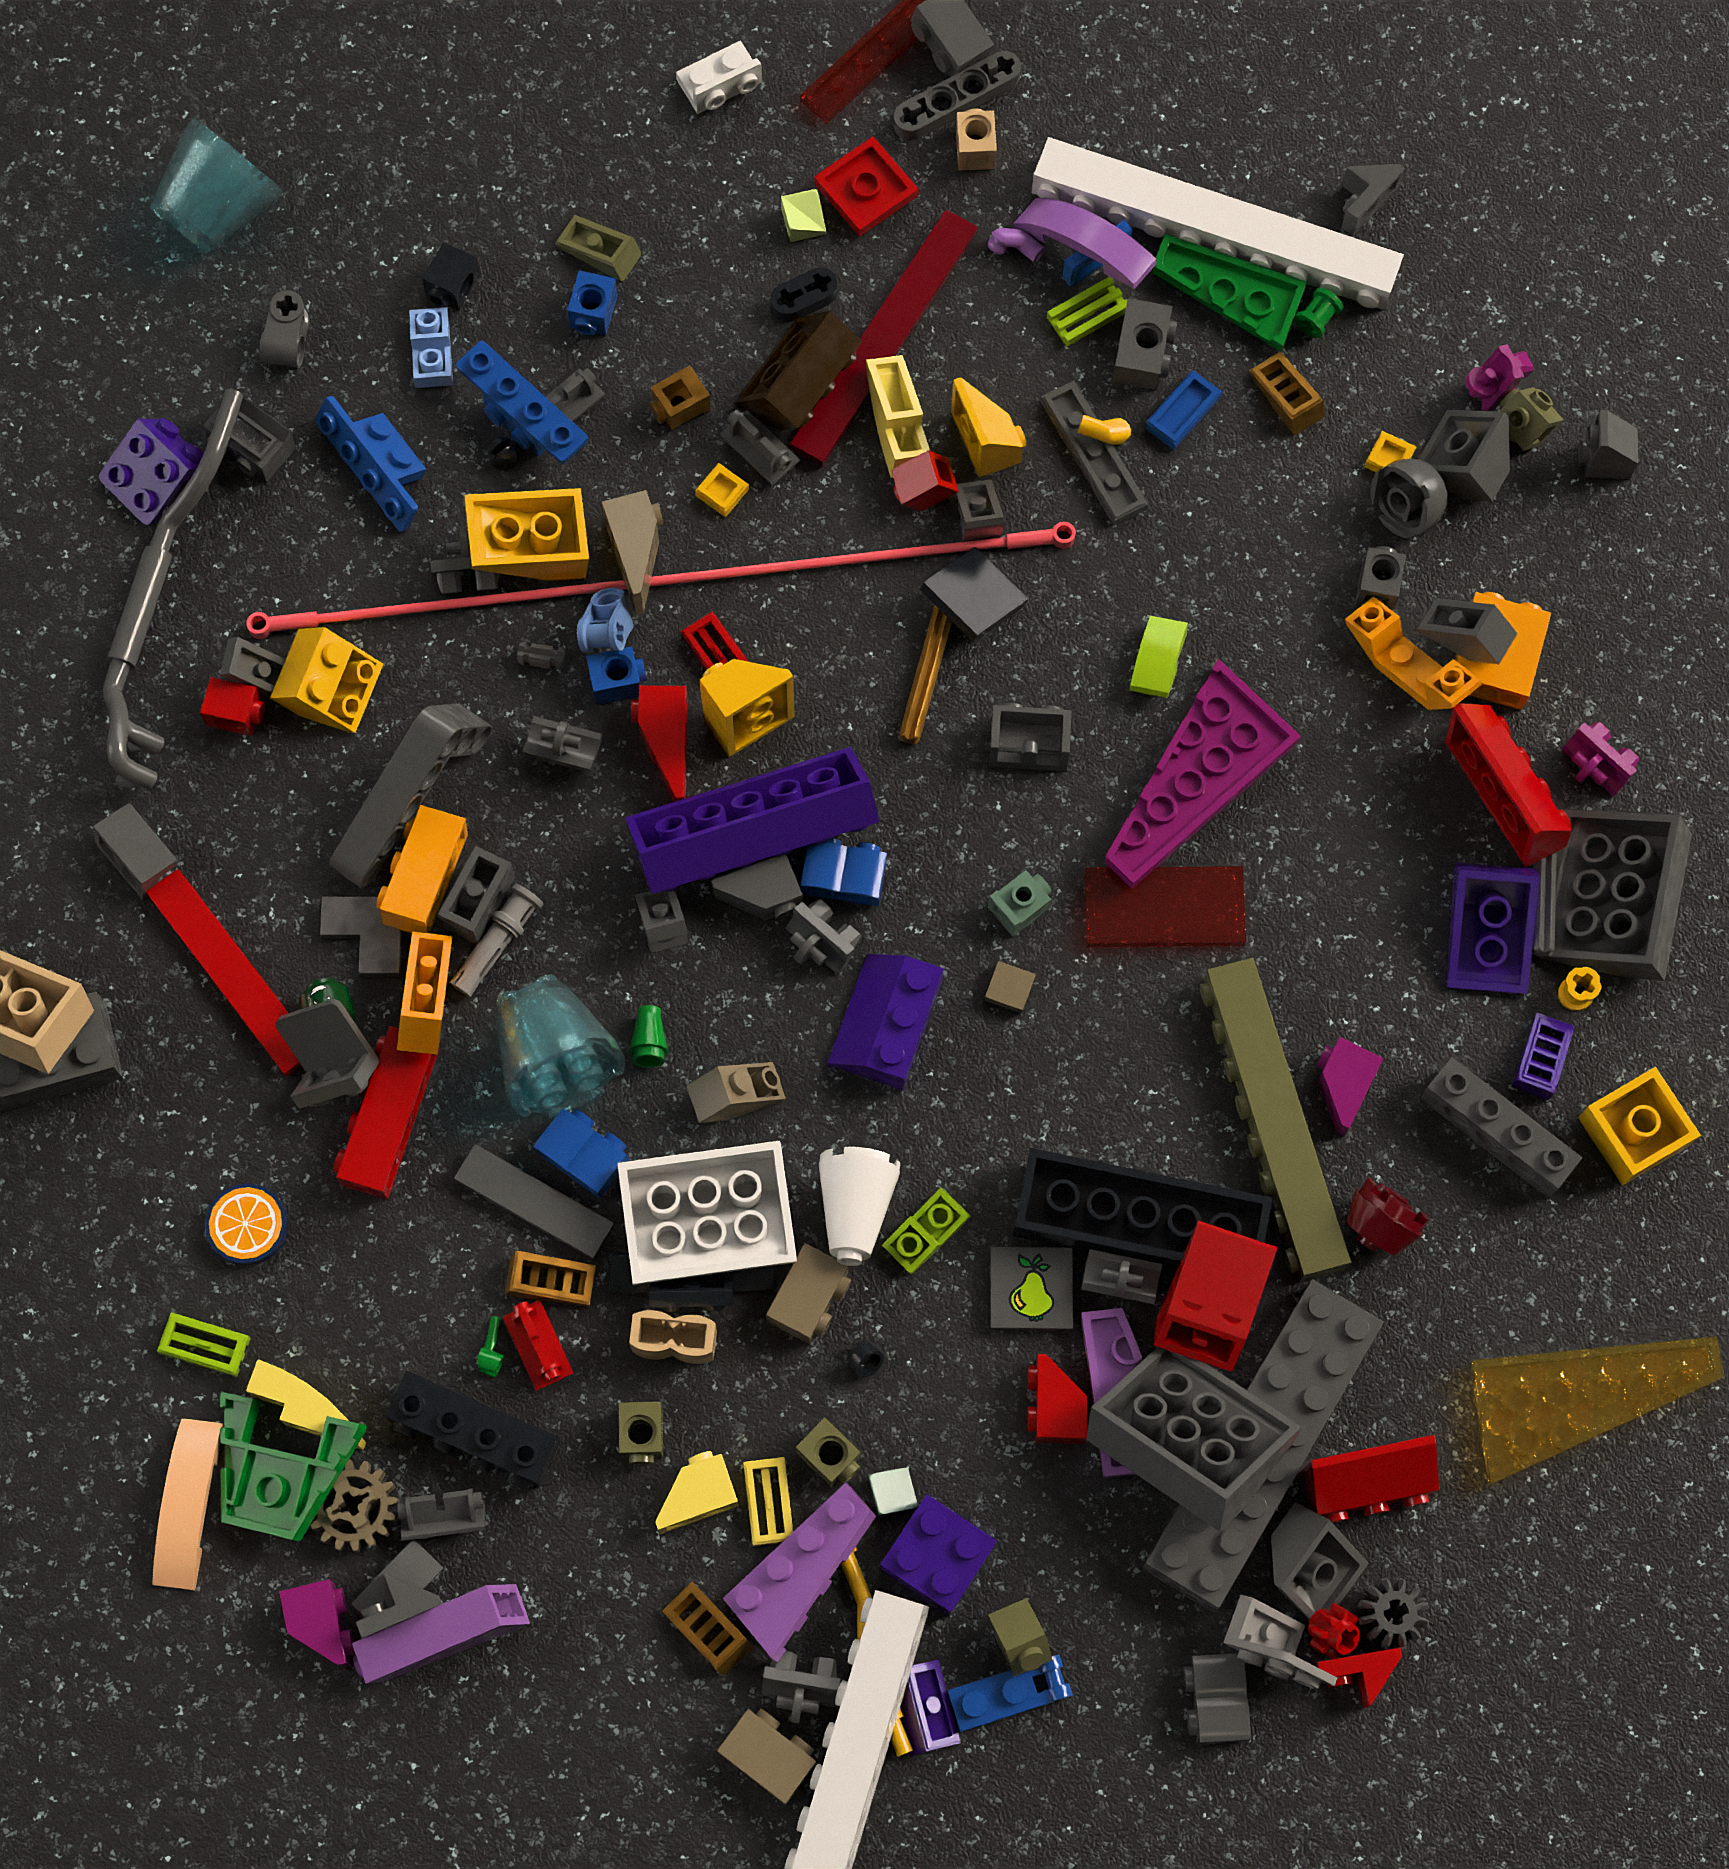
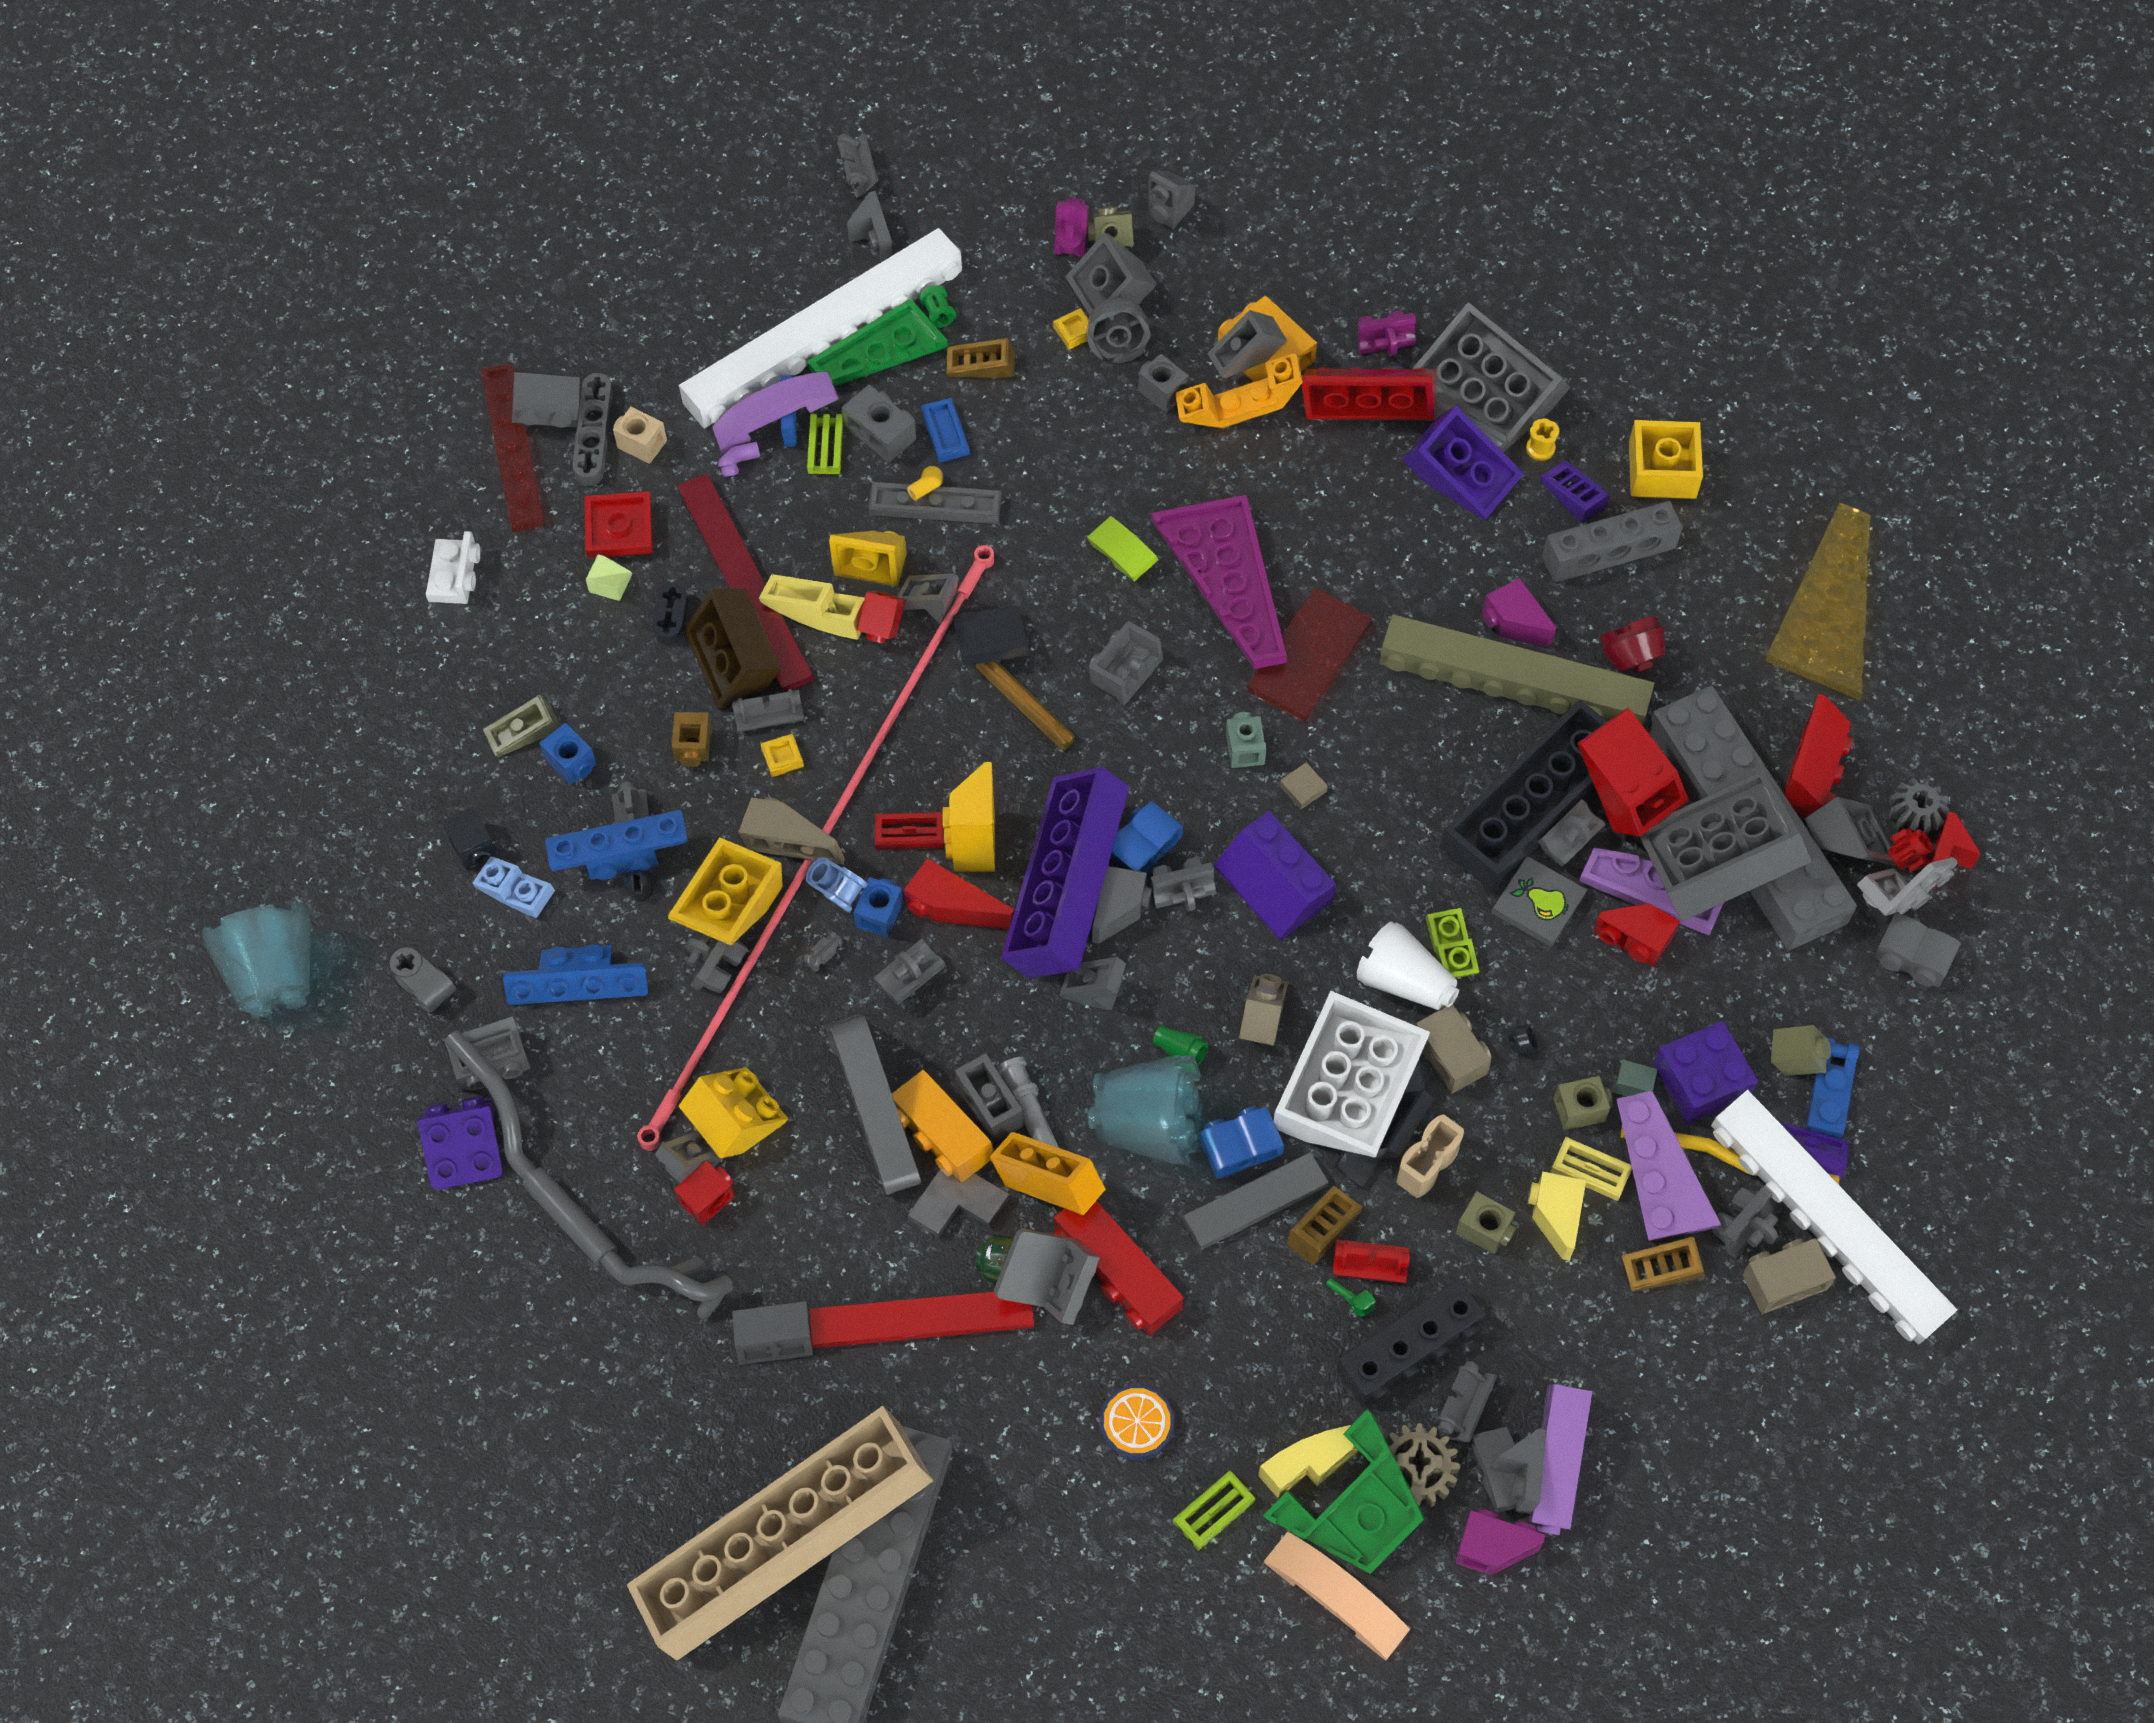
camera: 55 degrees left, 10 degrees down
(1421, 141) = (858, 163): none -> dark grey hinge

